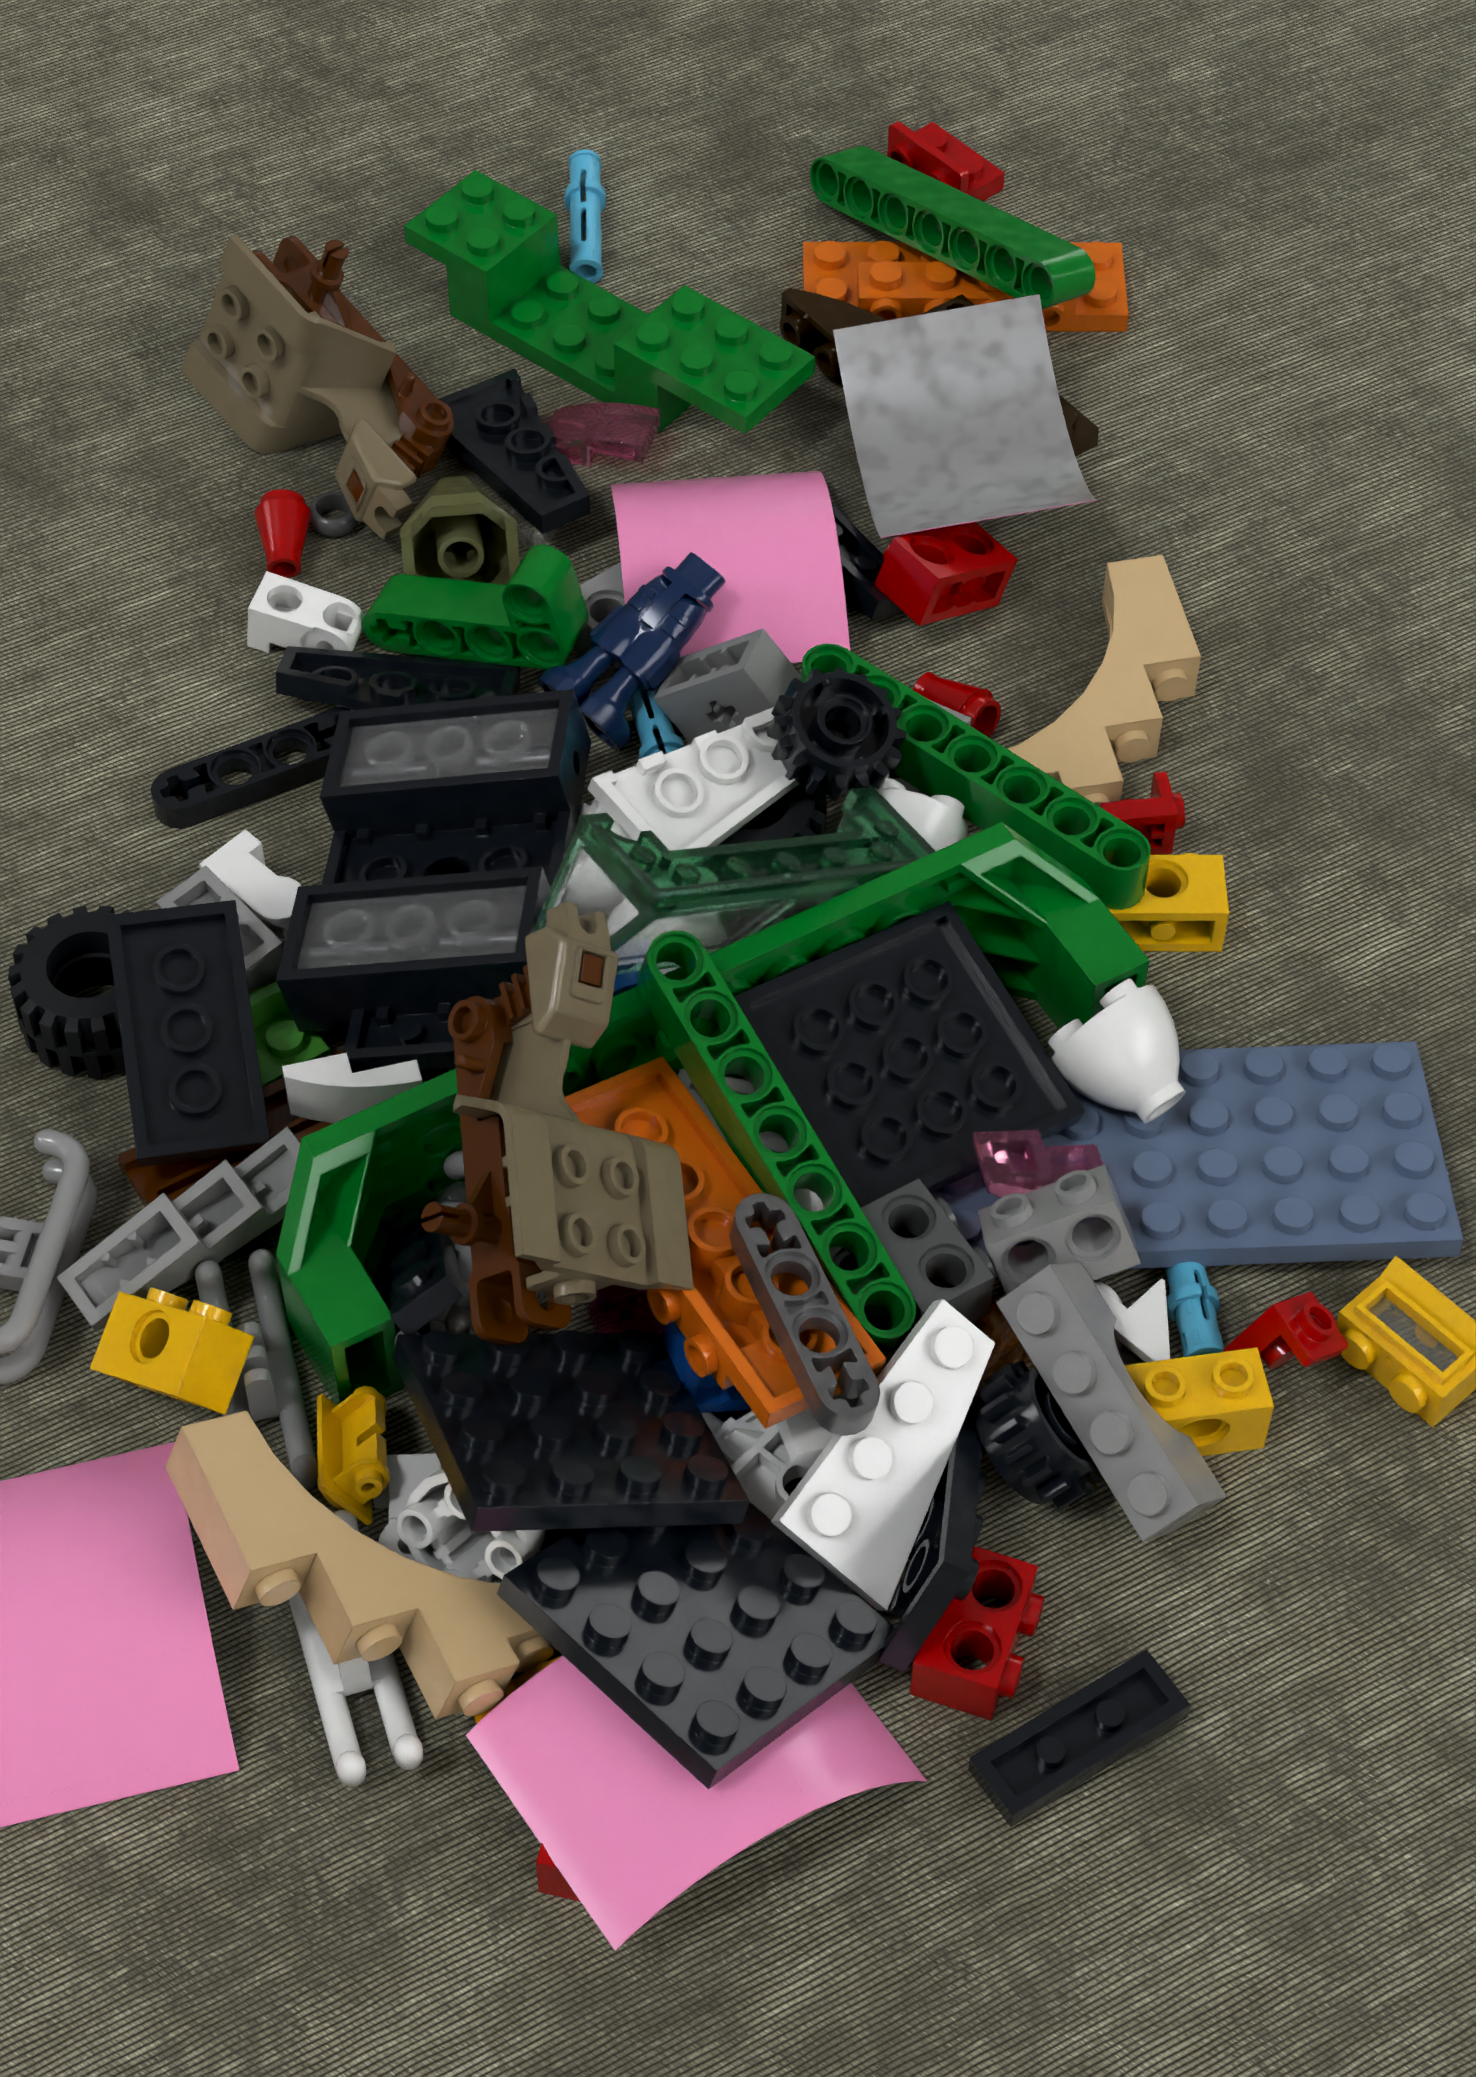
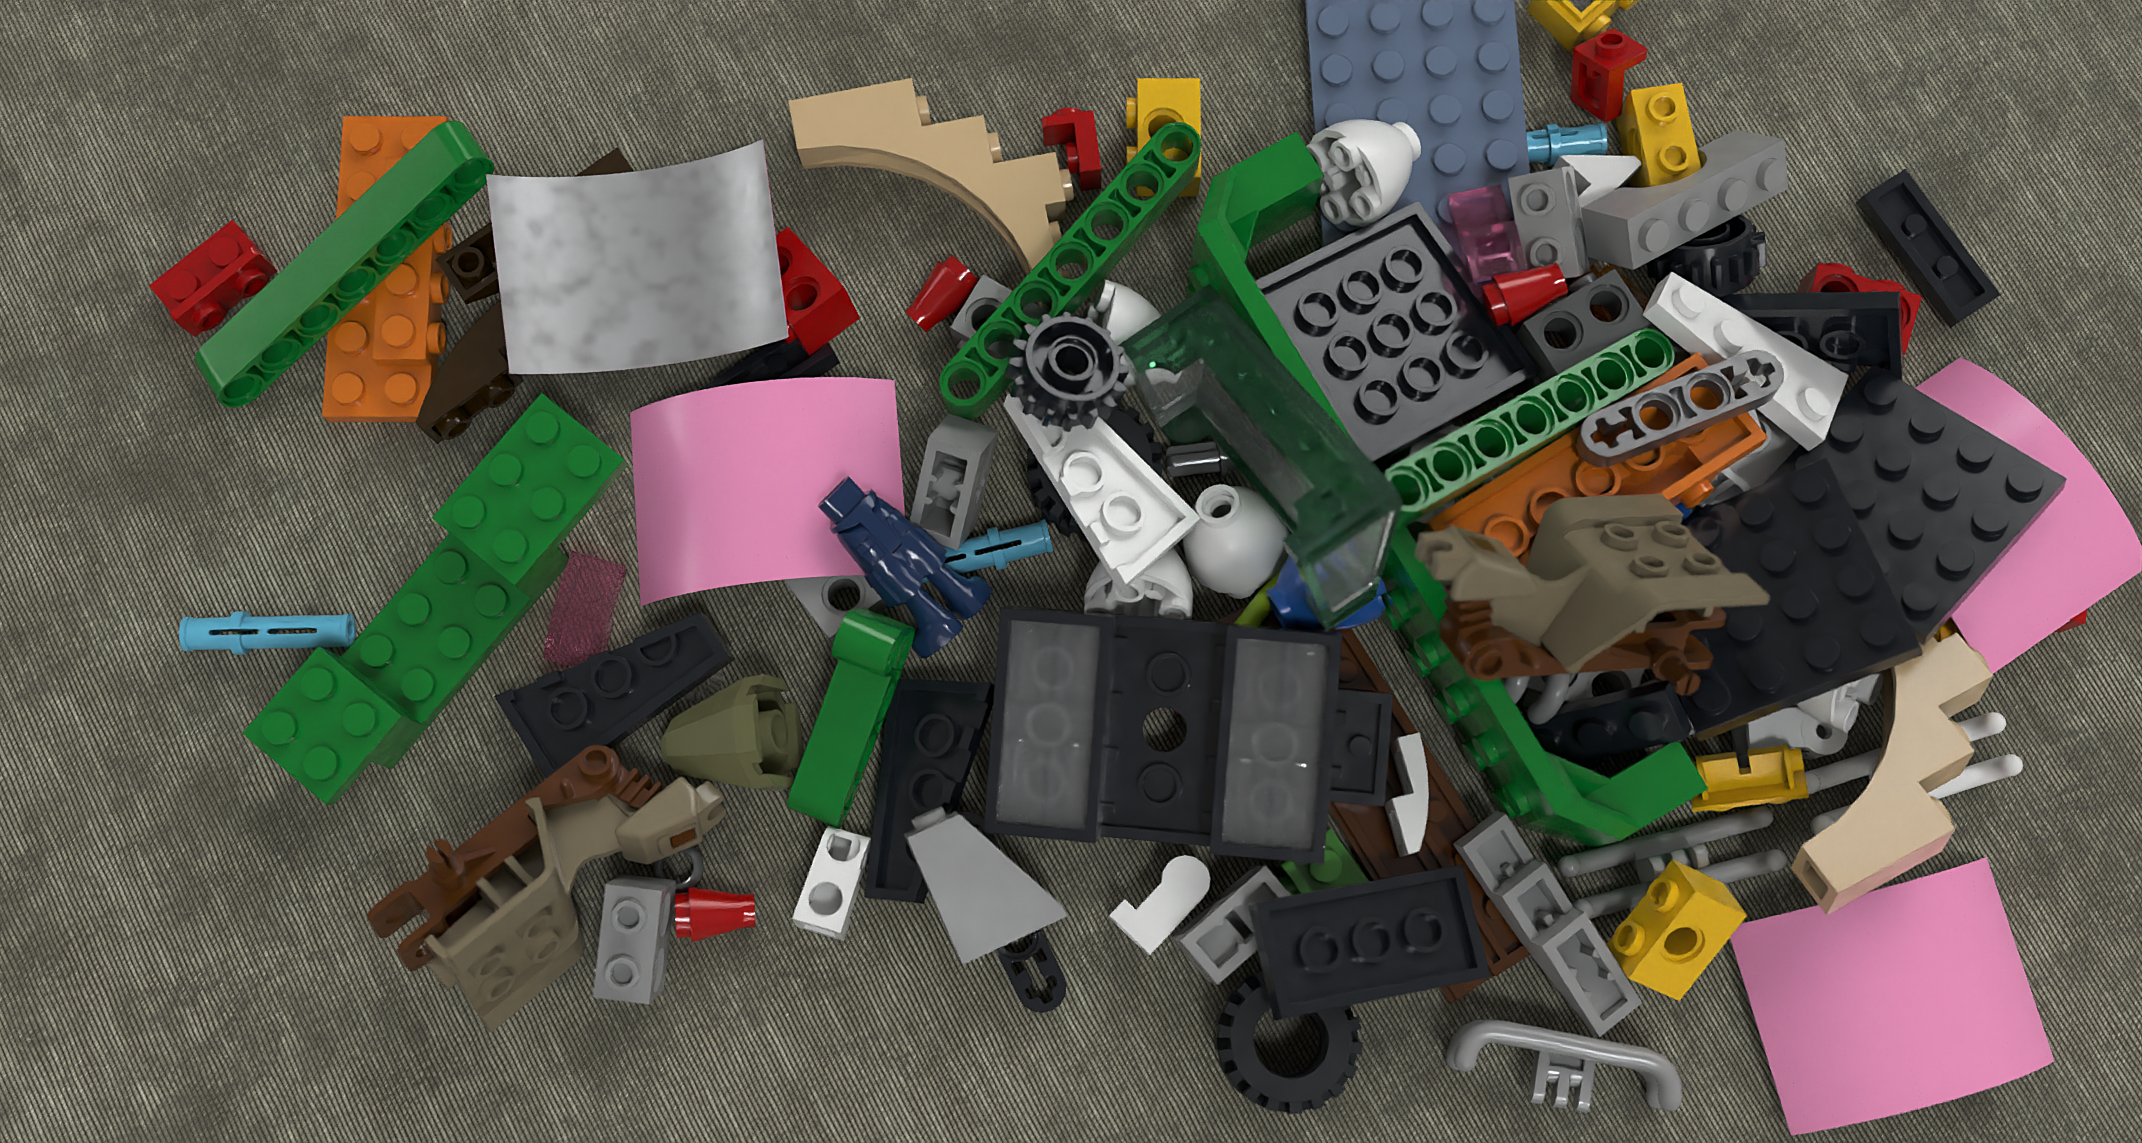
camera: 90 degrees left, 25 degrees up
(250, 458) = (634, 938): none -> light grey brick
(286, 704) = (976, 886): none -> light grey slope
(954, 1175) = (1522, 293): none -> red cone

